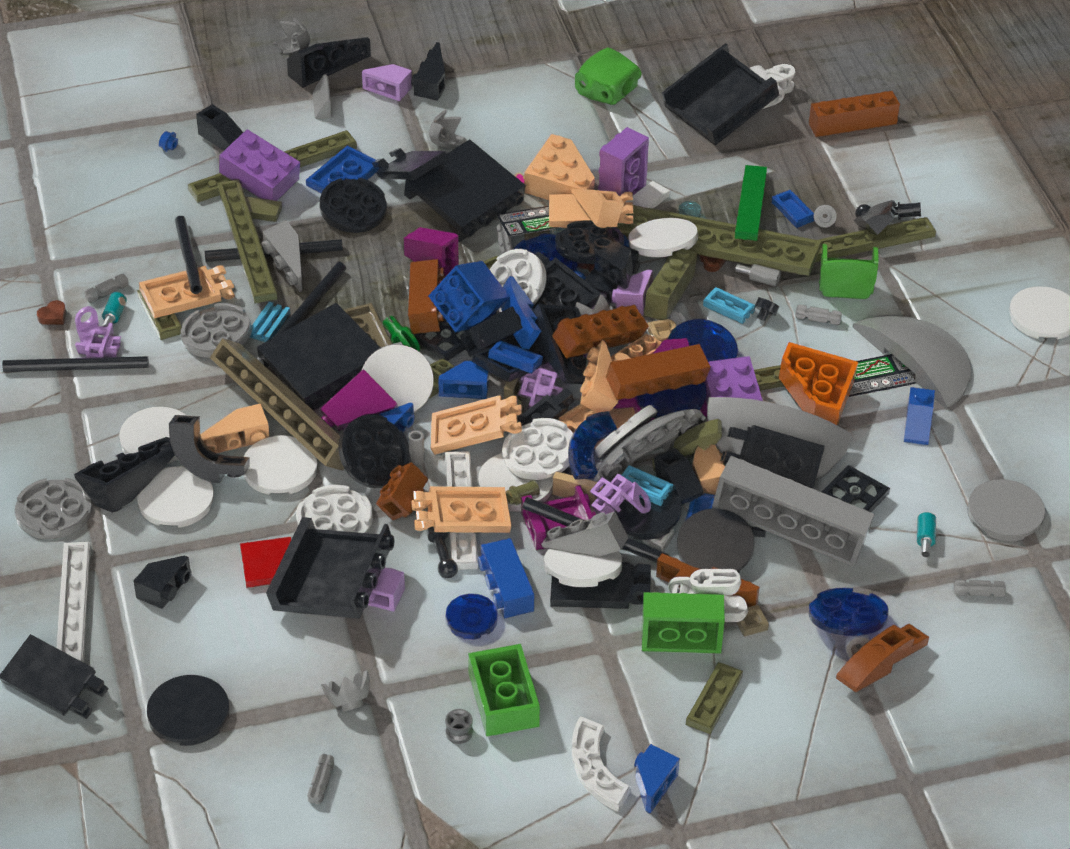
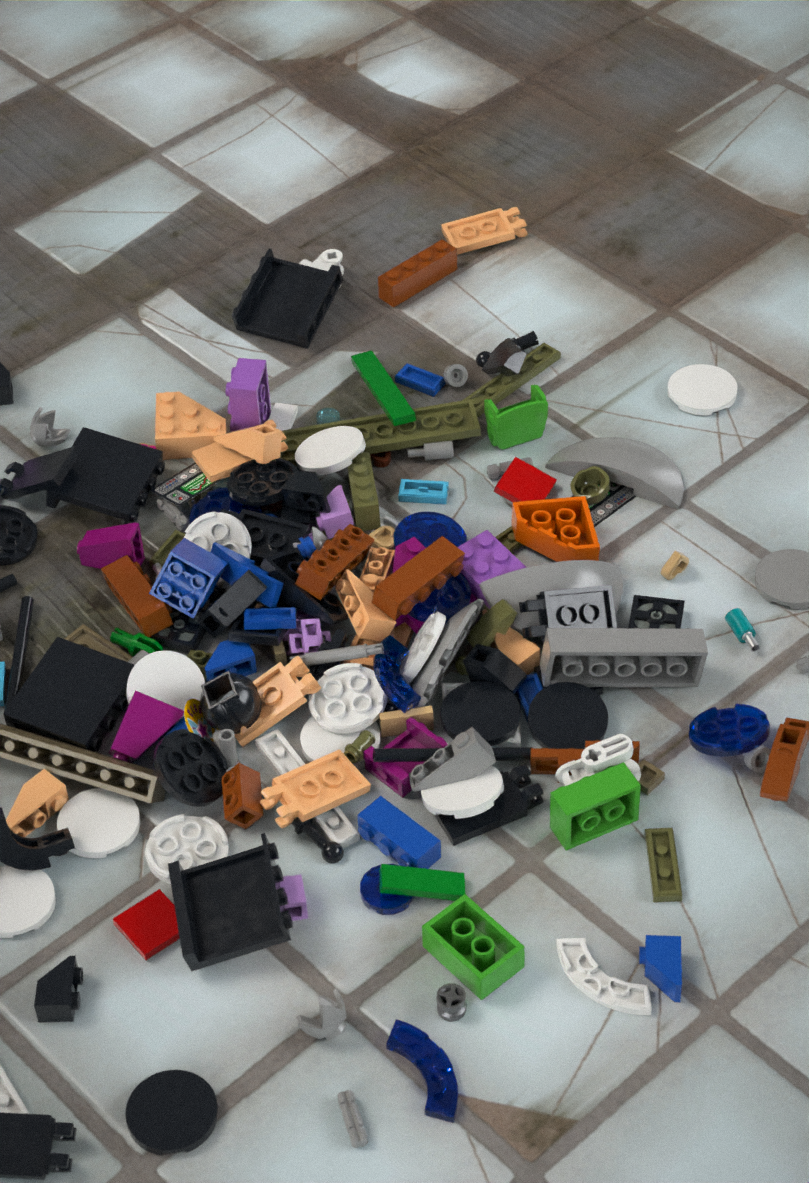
camera: 25 degrees left, 0 degrees up
(402, 410) = (193, 720): none -> sticker
(412, 773) = (433, 1066): none -> clear blue tile
(438, 411) = (234, 711): none -> black piece
(499, 622) = (421, 882): none -> green tile
(554, 409) = (341, 654): none -> light grey piece
(583, 307) = (306, 547): none -> blue plate
(607, 77) = (169, 320): bright green piece -> none
(616, 492) = (463, 703): lavender piece -> none
(655, 495) = (484, 694): medium azure tile -> none
(766, 307) = (461, 480): black tile -> none
(819, 331) = (524, 482): none -> red tile
(876, 363) = (591, 490): none -> olive helmet
(904, 454) = (674, 565): none -> tan tile
(919, 416) = (663, 524): slope -> none
(943, 97) = (484, 229): none -> light nougat tile

